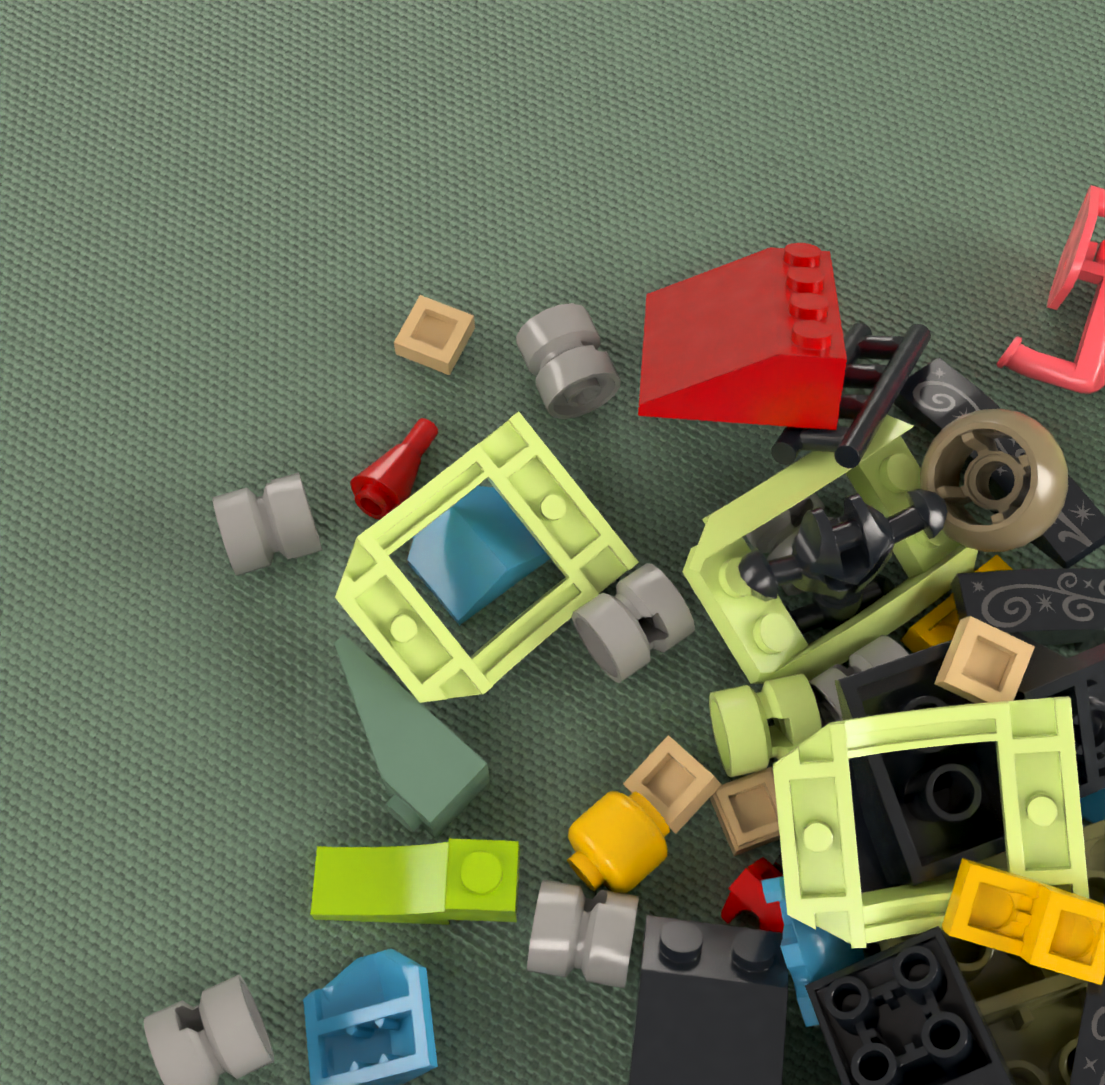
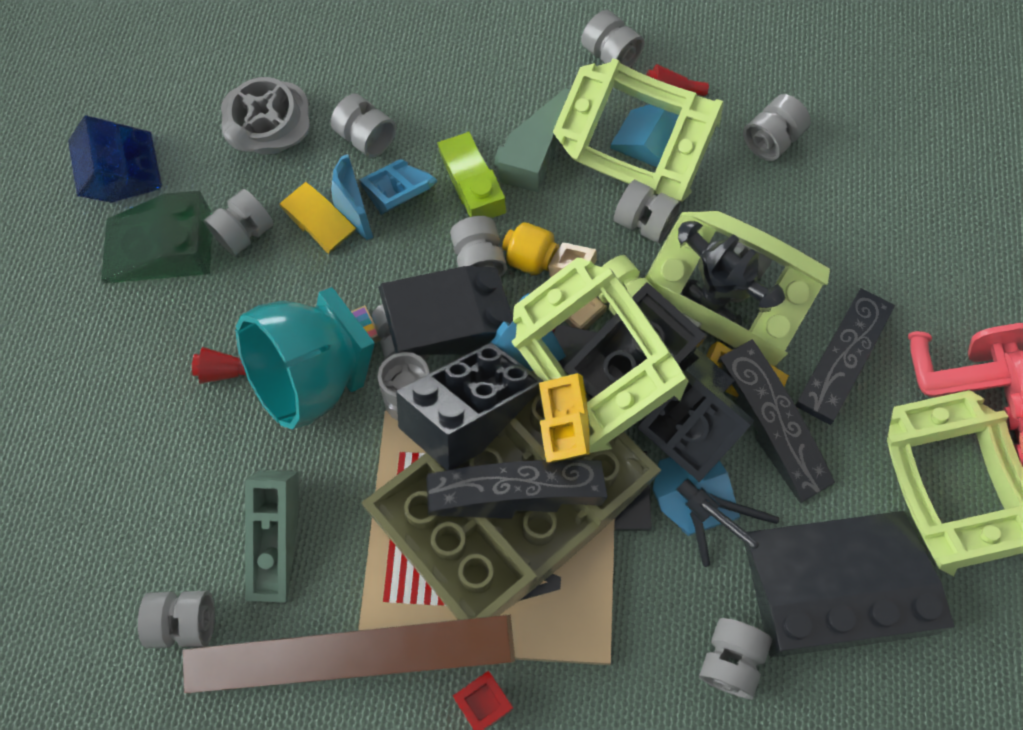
camera: 70 degrees right, 0 degrees up
(434, 335) = (757, 68): tan plate -> none
(747, 343) = (833, 195): red slope -> none
(865, 410) = (820, 254): black bar -> none
(984, 663) = (690, 342): tan plate -> none
(1038, 474) = (815, 331): dark tan wheel -> none

